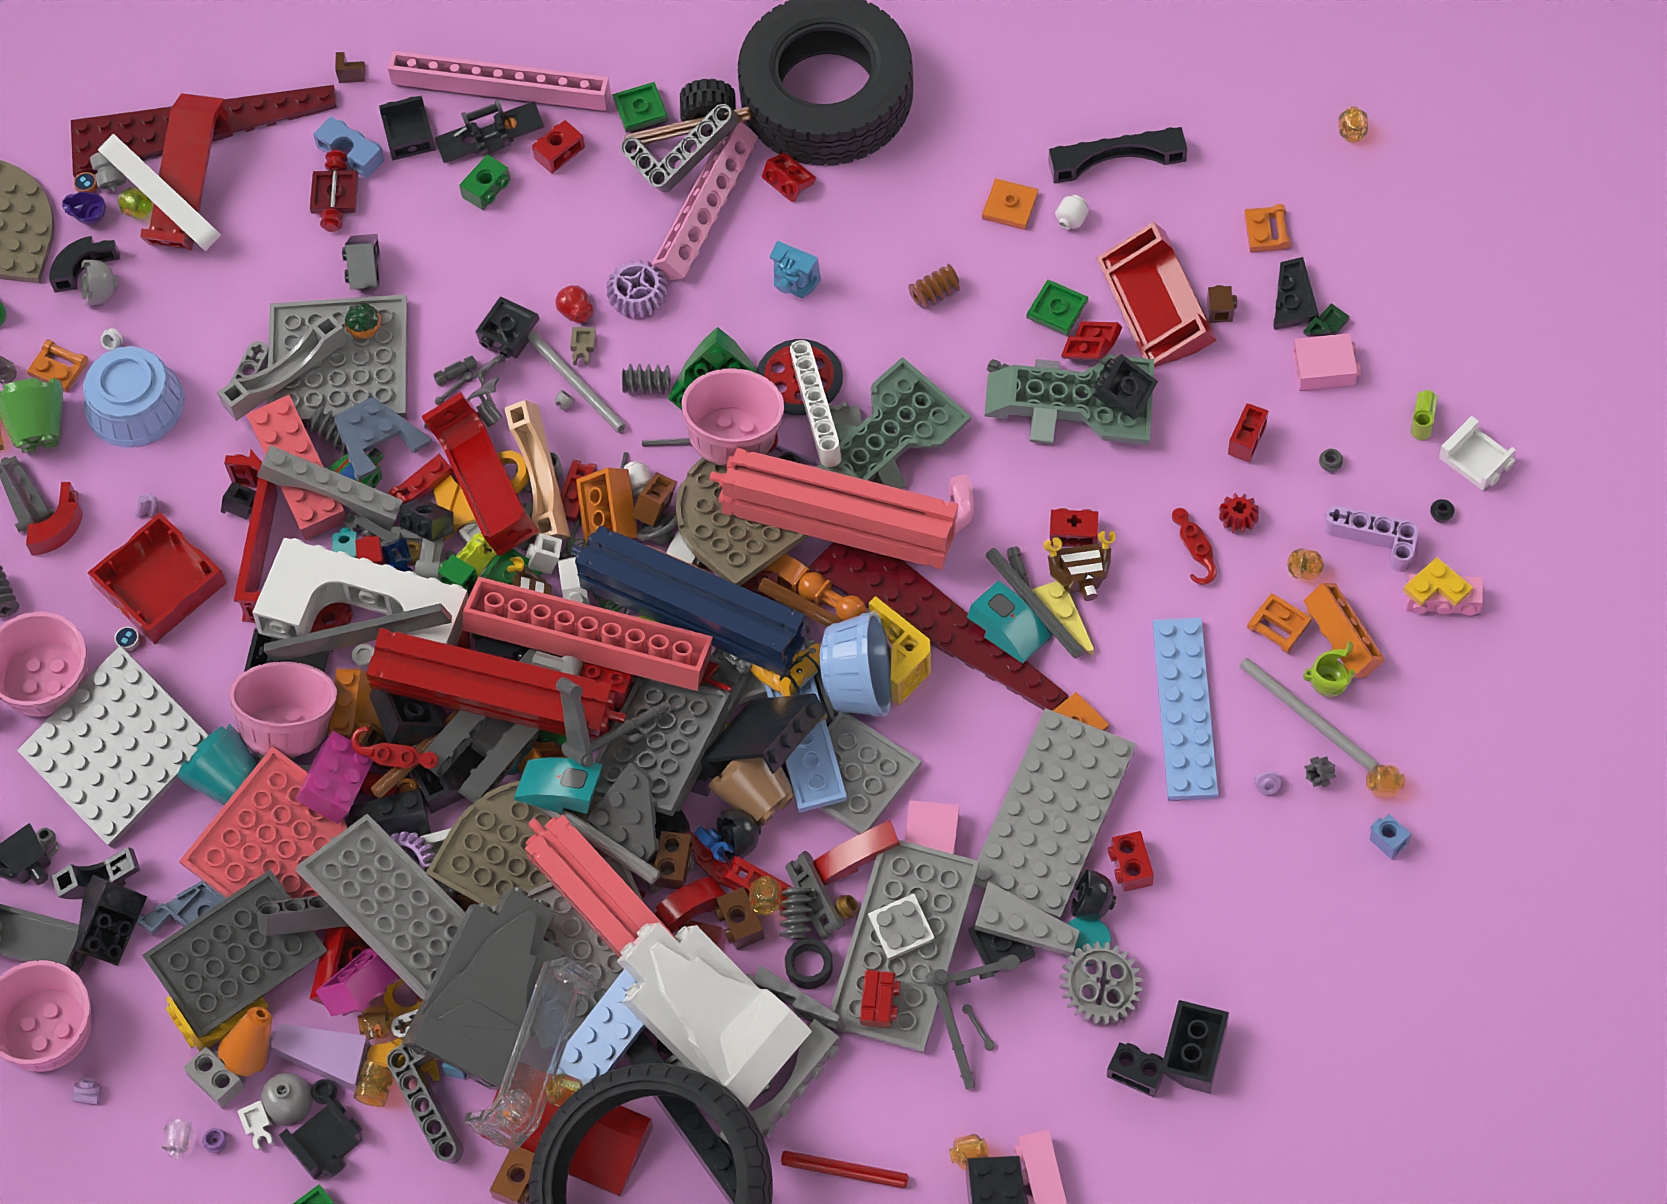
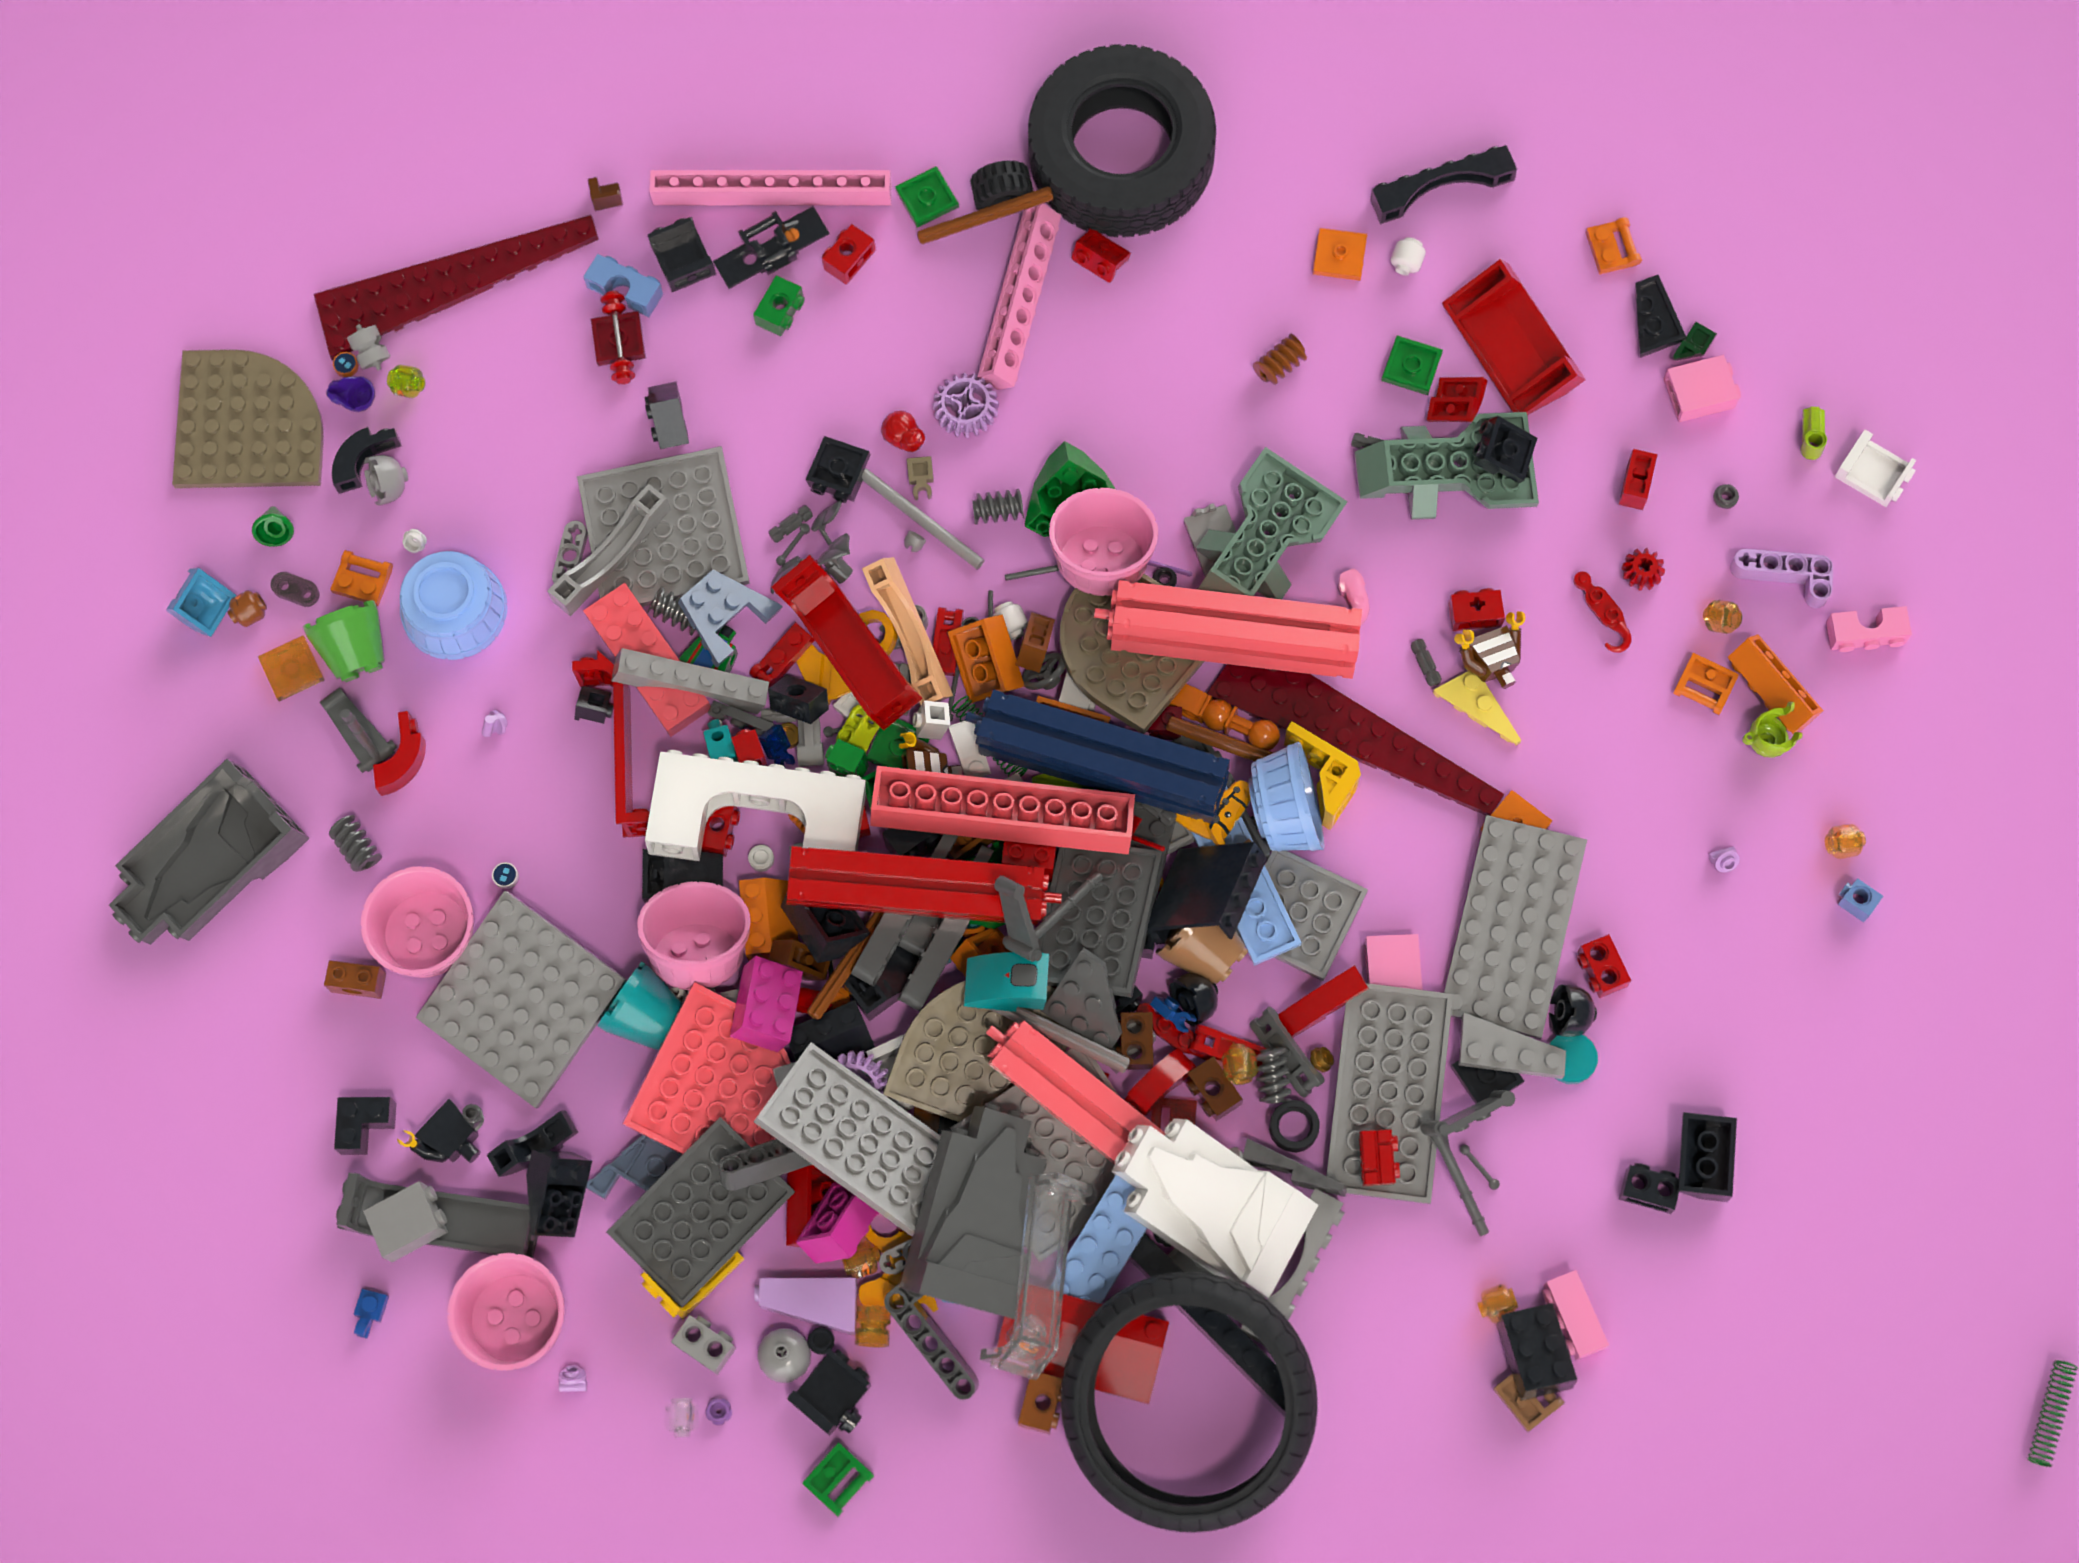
camera: 10 degrees left, 10 degrees up
(157, 578) = (523, 804): red tile -> none
(159, 192) = (432, 368): white beam -> none
(185, 163) = (452, 338): red panel -> none
(248, 1043) = (733, 1307): orange cone -> none
(256, 1121) = (757, 1384): white plate -> none
(357, 633) = (760, 845): dark grey tile -> none
(362, 320) = (683, 485): dark green piece -> none
(393, 754) = (824, 971): red piece -> none
(561, 1088) = (1077, 1309): clear yellow head -> none
(565, 664) = (977, 851): light grey piece -> none
(682, 150) = (986, 244): dark grey beam -> none
(781, 355) = (1164, 450): wedge -> none
(794, 270) = (1130, 363): dark azure brick -> none
(815, 403) = (1186, 514): white beam -> none
(844, 1169) = (1373, 1340): red axle -> none
(901, 926) = (1385, 1076): light grey piece -> none
(1009, 622) = (1430, 725): teal slope -> none
(1034, 603) = (1452, 699): dark grey axle -> none
(1079, 978) = (1620, 1103): light grey gear -> none
(1184, 709) = (1625, 791): light blue plate -> none
(1221, 304) = (1582, 338): reddish brown brick -> none
(1308, 714) = (1753, 779): light grey piece -> none
(1320, 771) = (1778, 841): dark grey gear -> none
(1353, 124) = (1683, 117): clear yellow head -> none
(1440, 579) = (1866, 615): yellow plate -> none
(1442, 516) = (1848, 542): black plate -> none

